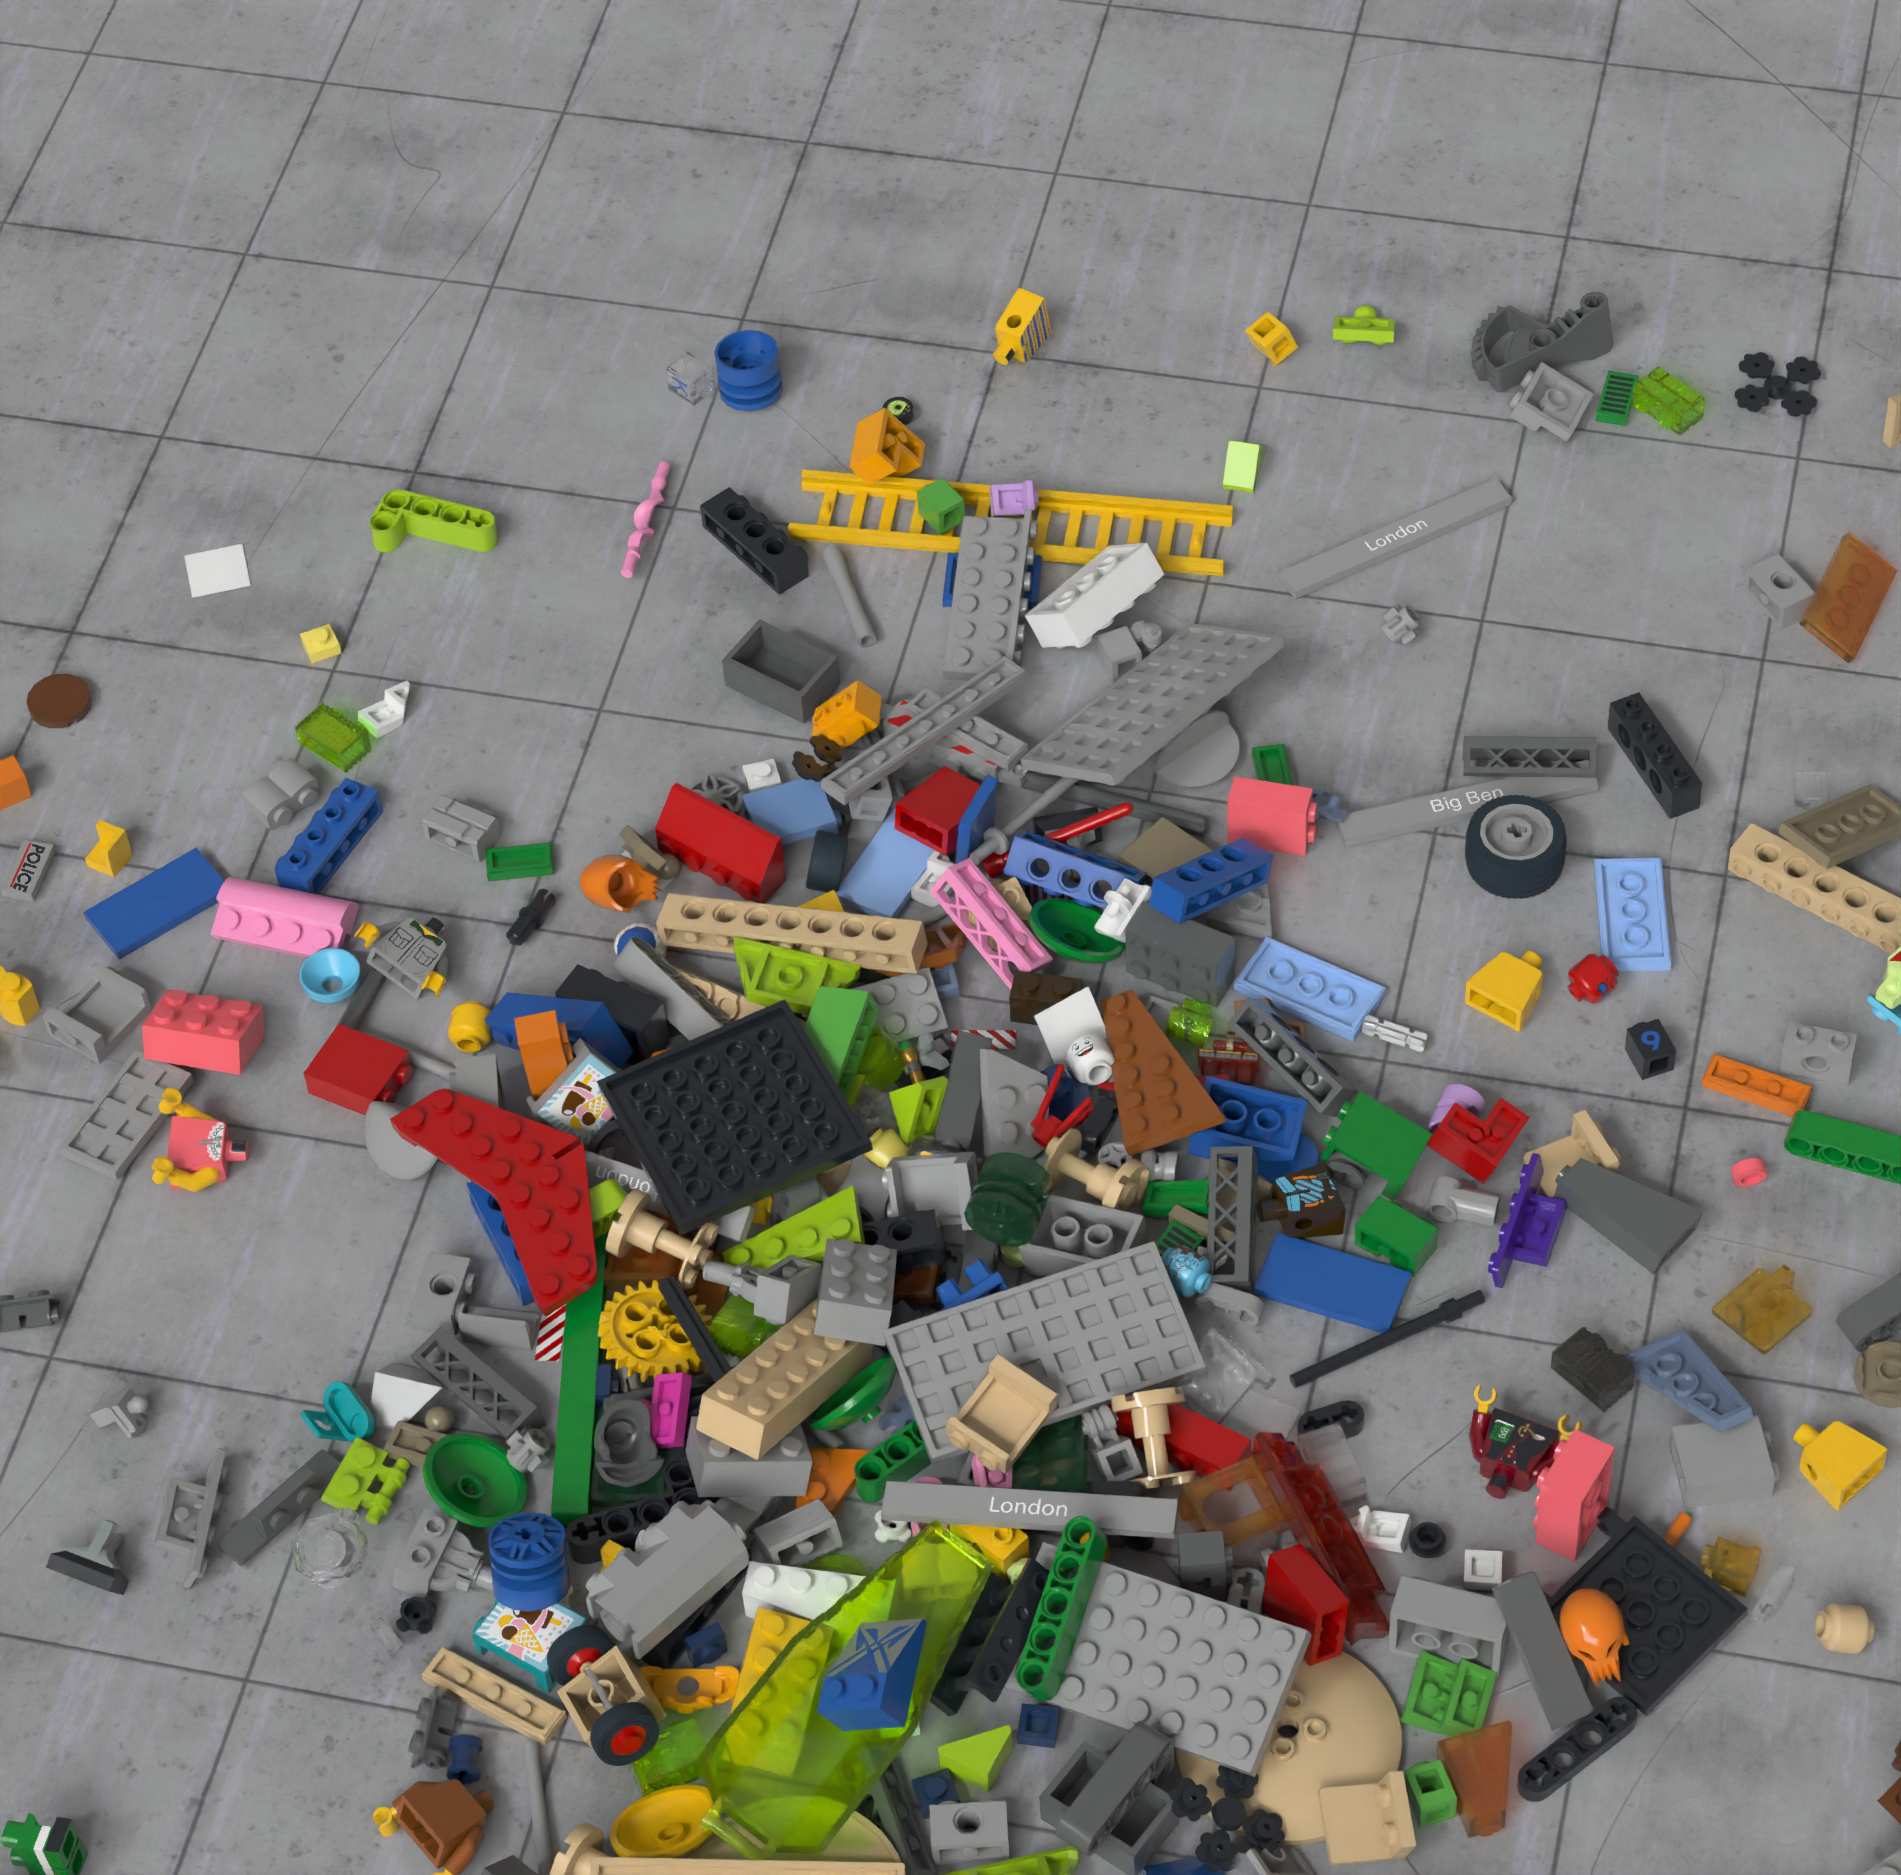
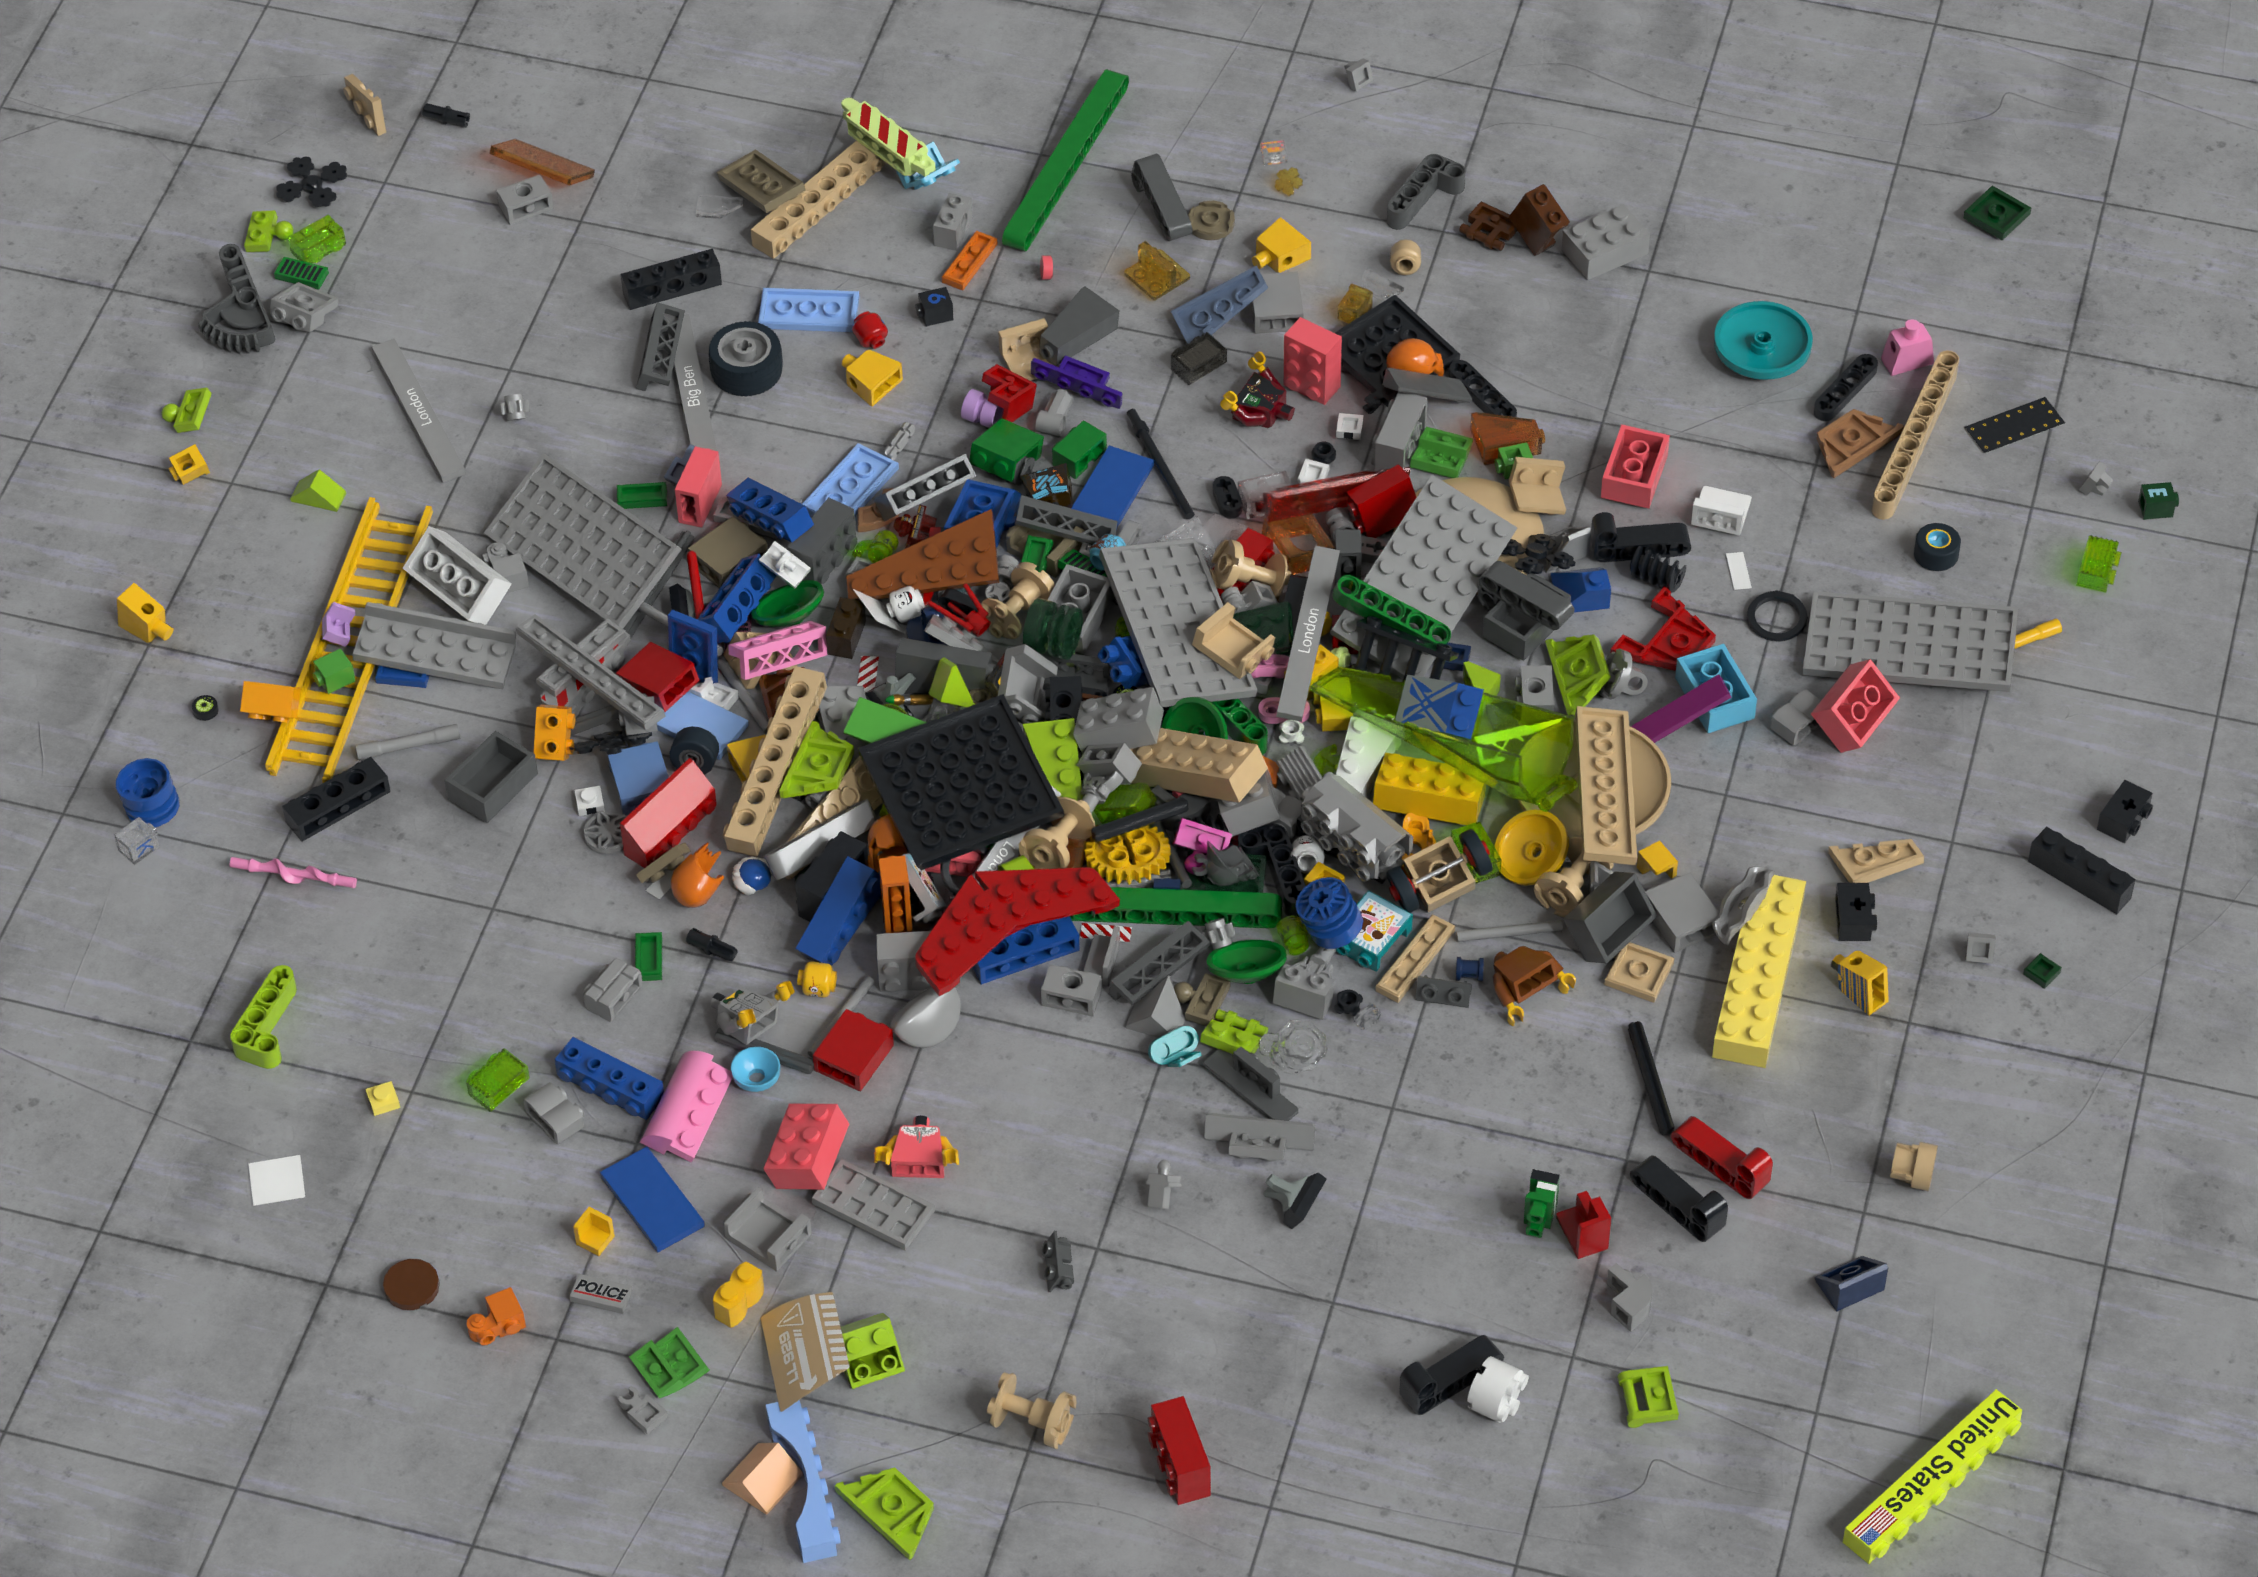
camera: 90 degrees left, 0 degrees up
(386, 714) = (471, 1049): white slope -> none
(1683, 354) = (263, 228): none -> lime plate

